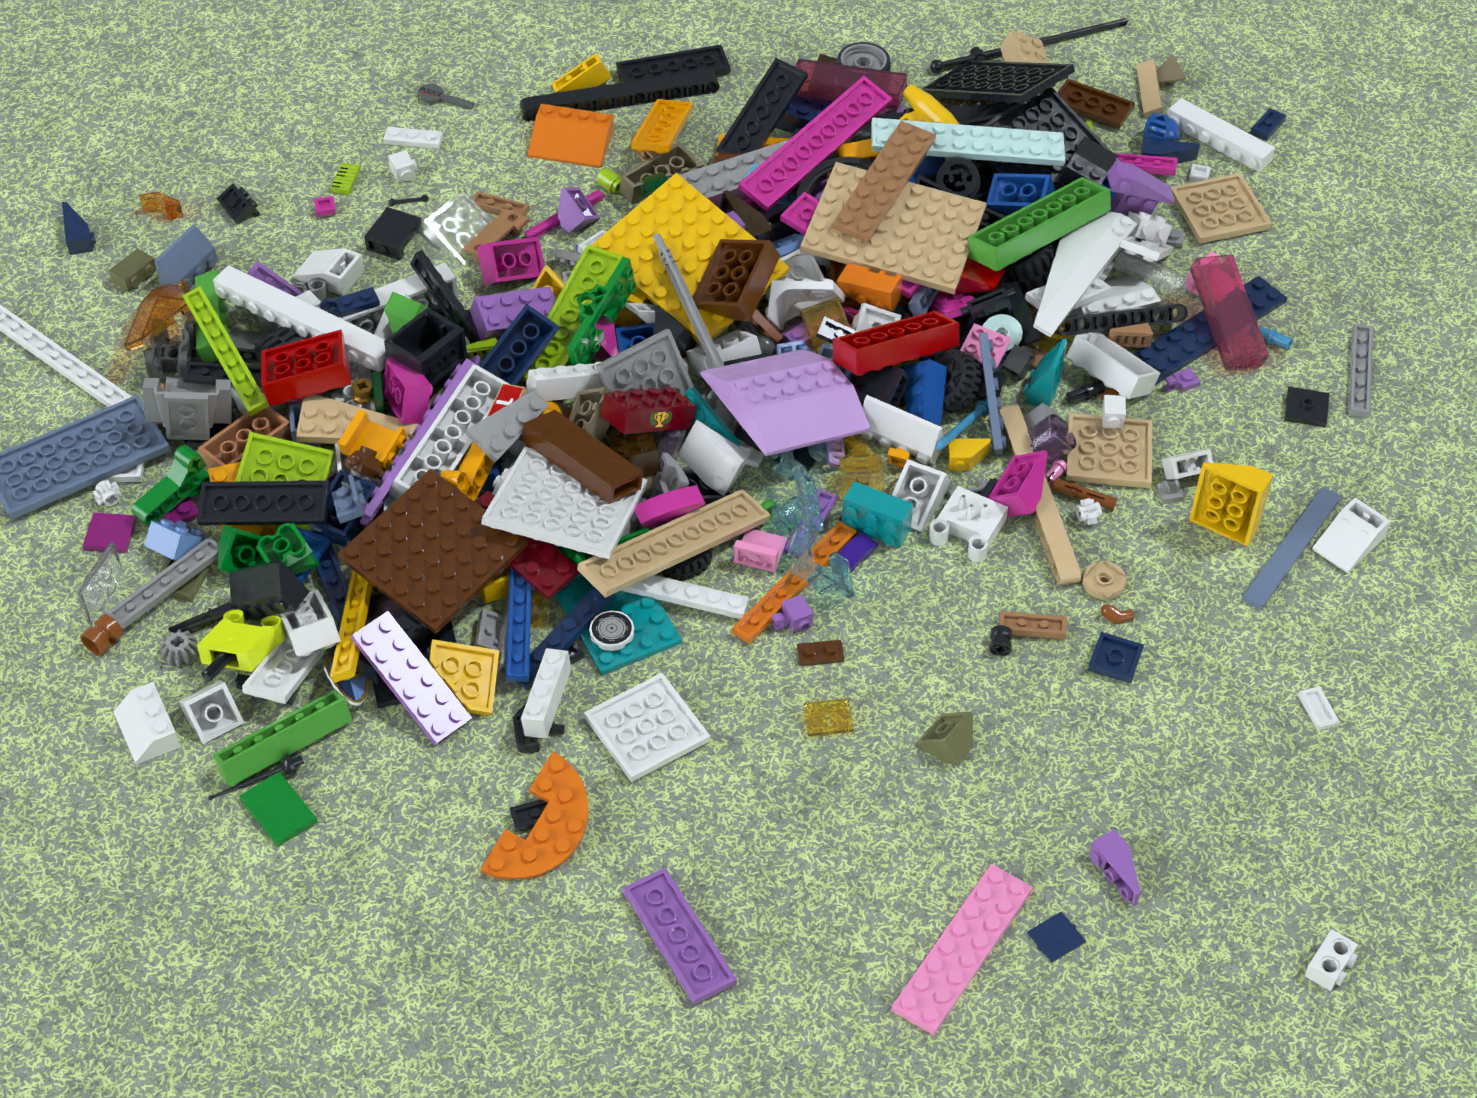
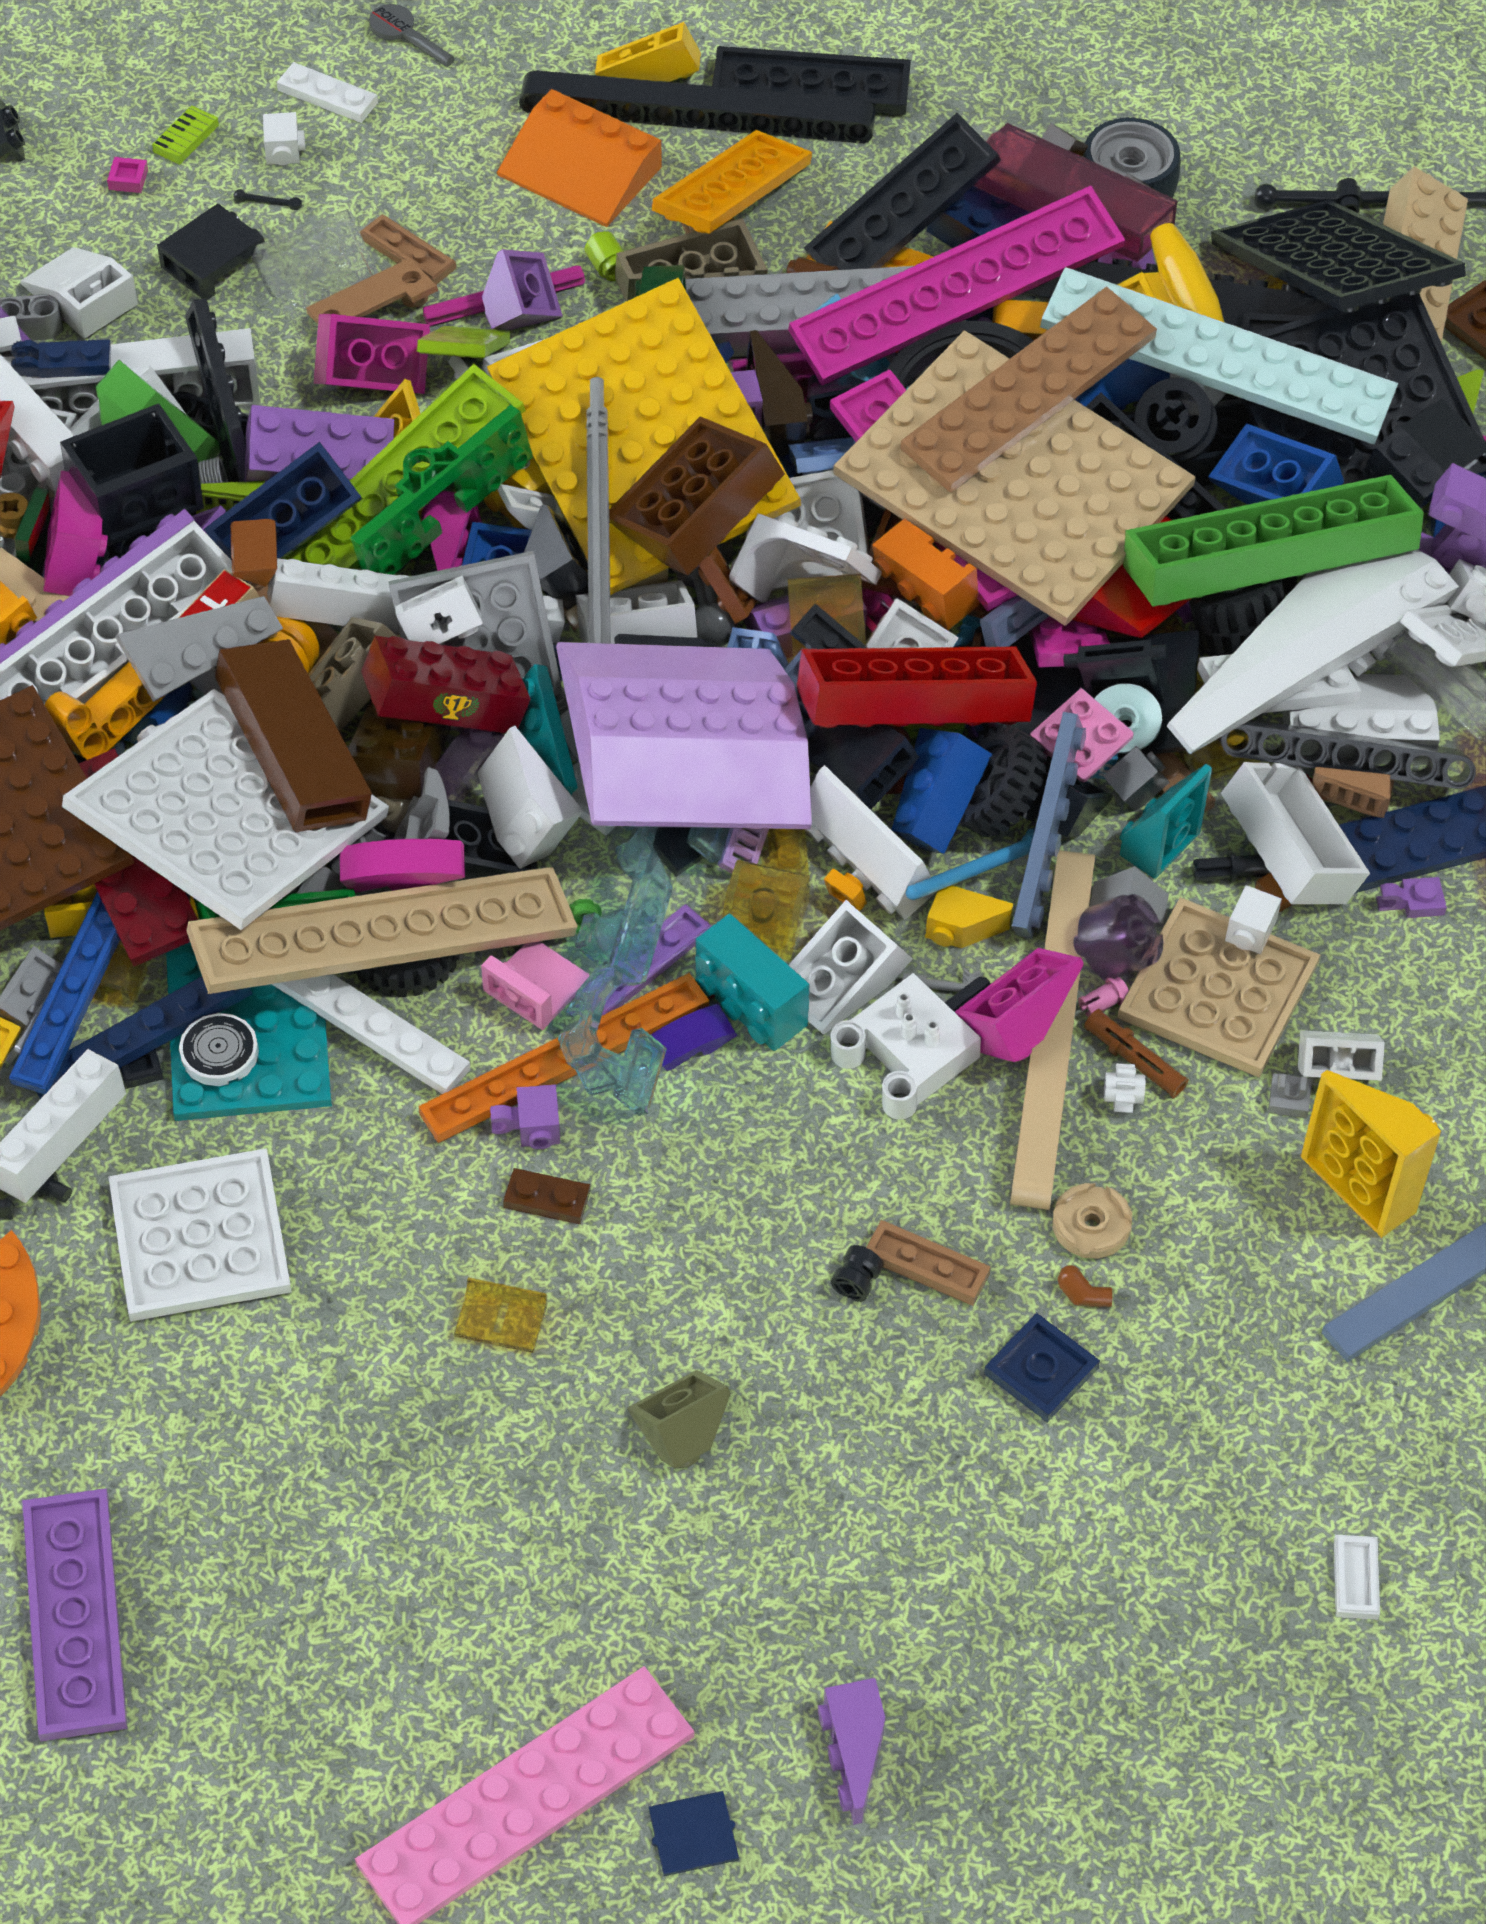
camera: 20 degrees right, 5 degrees up
(515, 369) = (254, 550): none -> dark orange slope
(560, 241) = (463, 342): none -> lime tile
(637, 364) = (452, 601): none -> white brick

